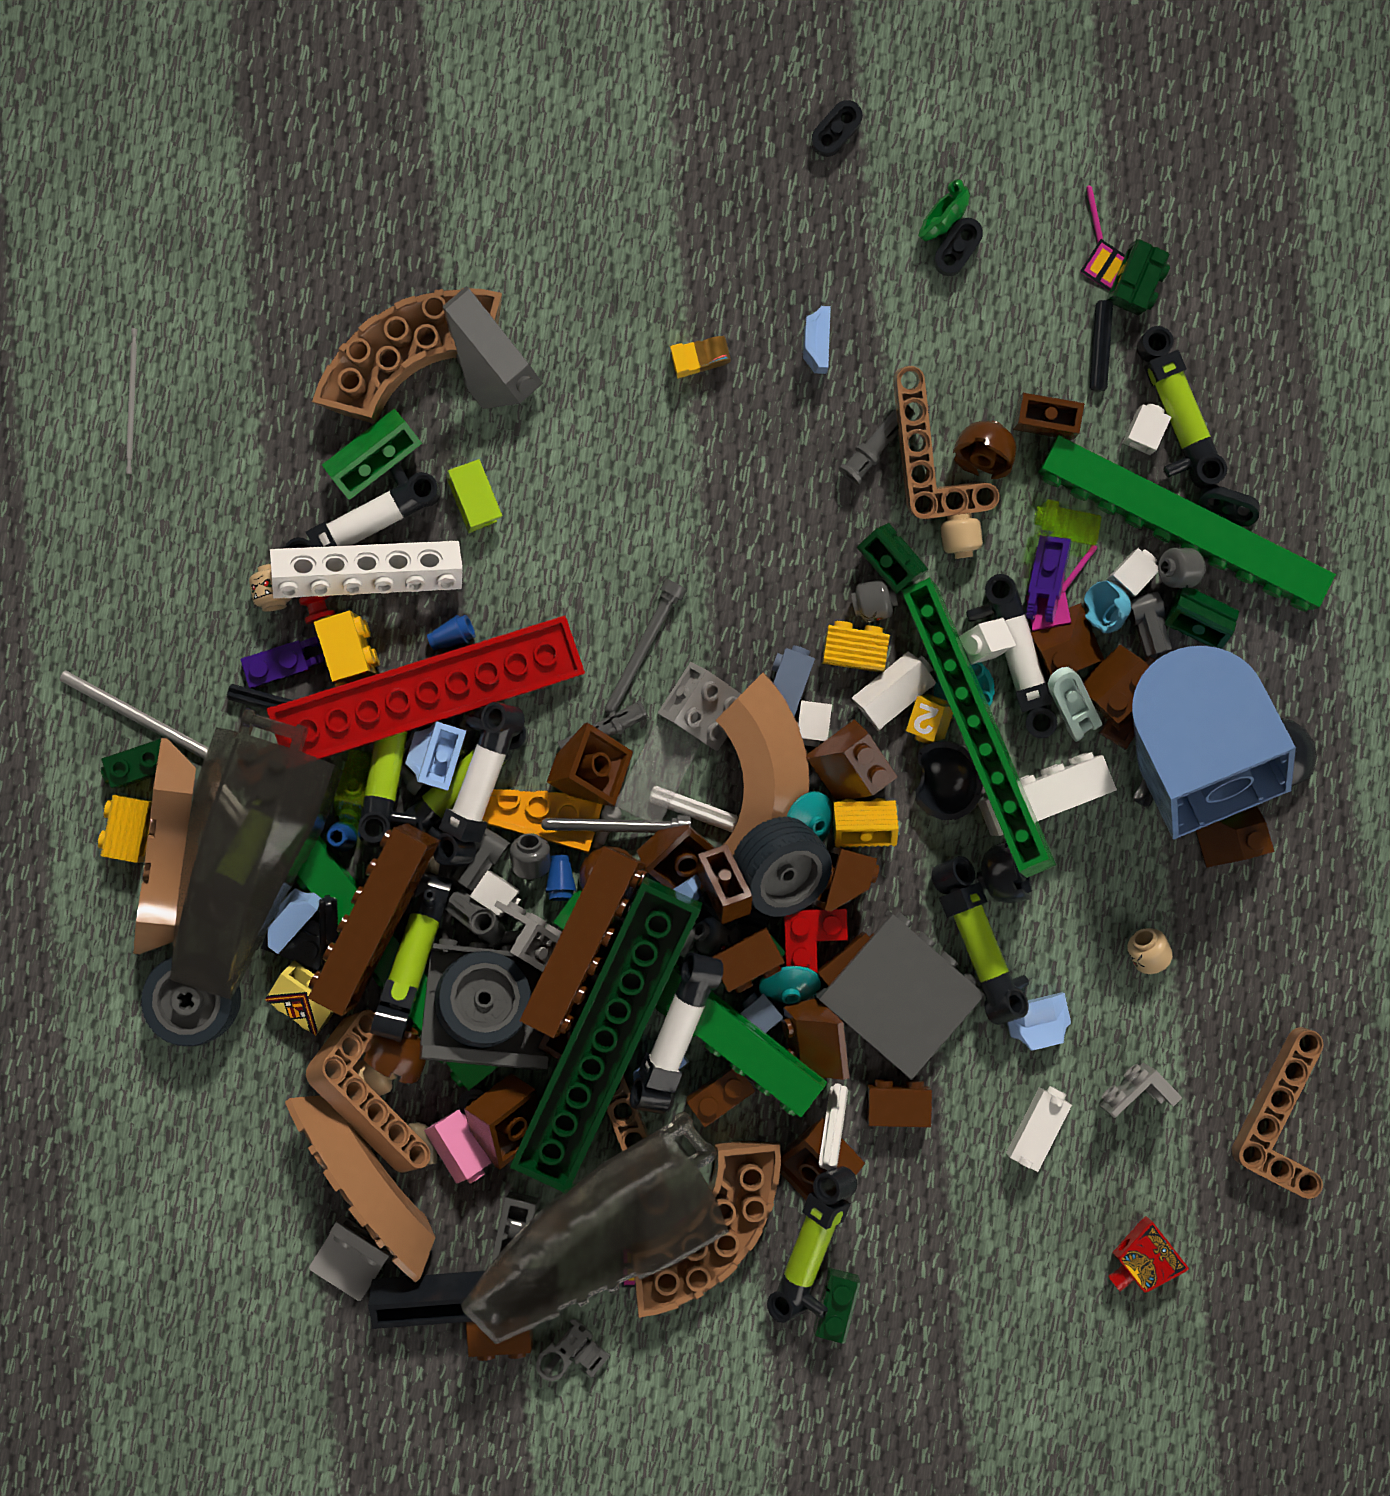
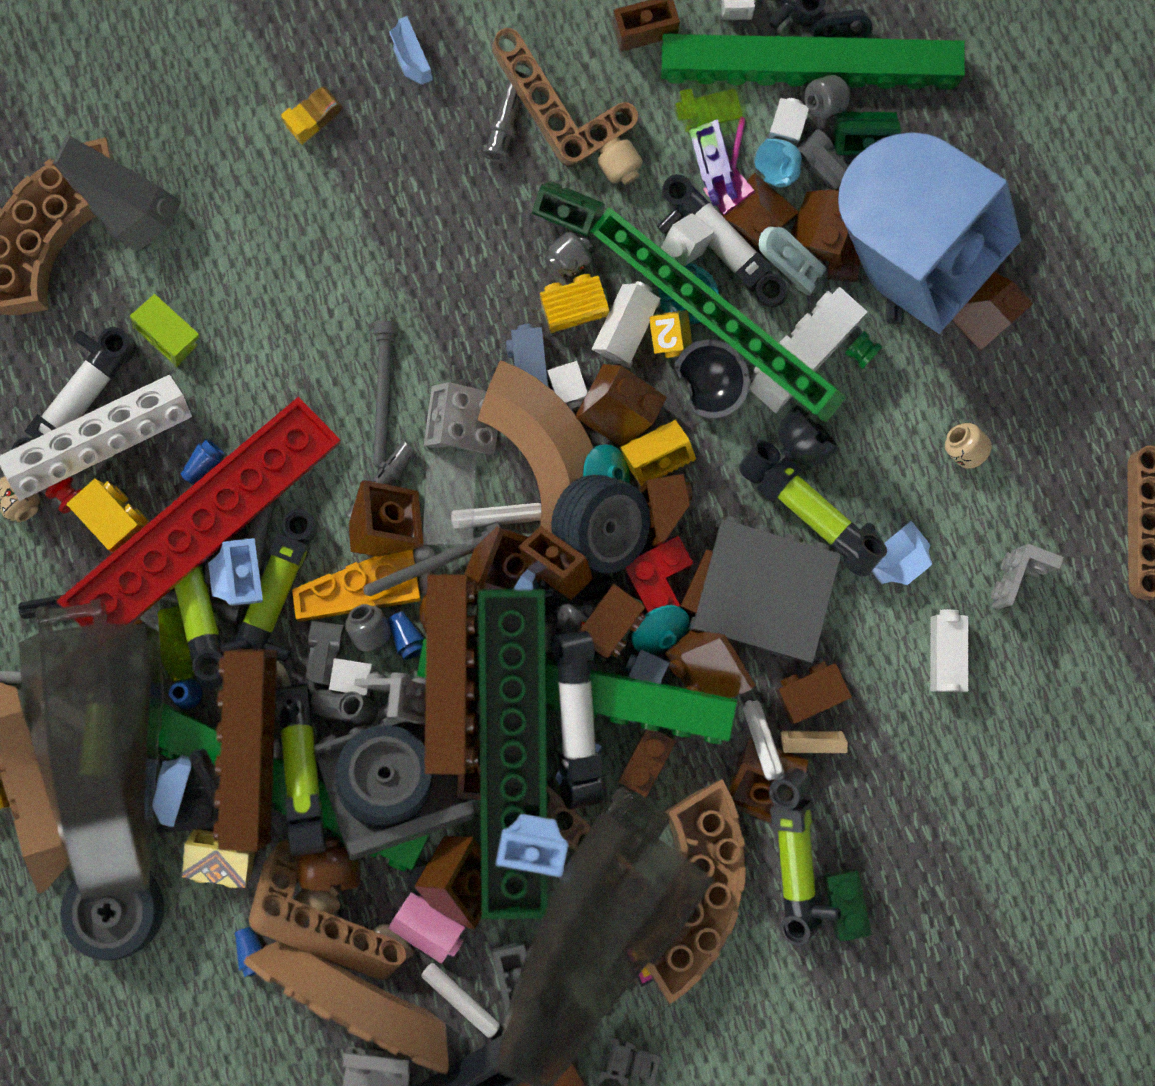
camera: 30 degrees left, 5 degrees down
(280, 662) = (57, 561): dark purple hinge -> none
(294, 1086) = (246, 944): none -> blue cone
(371, 454) = (54, 334): green brick -> none
(458, 1222) = (460, 1000): none -> white axle
(464, 822) = (291, 622): black piece -> none
(584, 1128) = (533, 846): none -> light blue slope
(878, 1148) = (813, 742): none -> tan tile
(986, 448) = (605, 76): reddish brown cylinder -> none
(1098, 817) = (863, 350): none -> green wheel
(1146, 1259) = (1104, 724): torso -> none

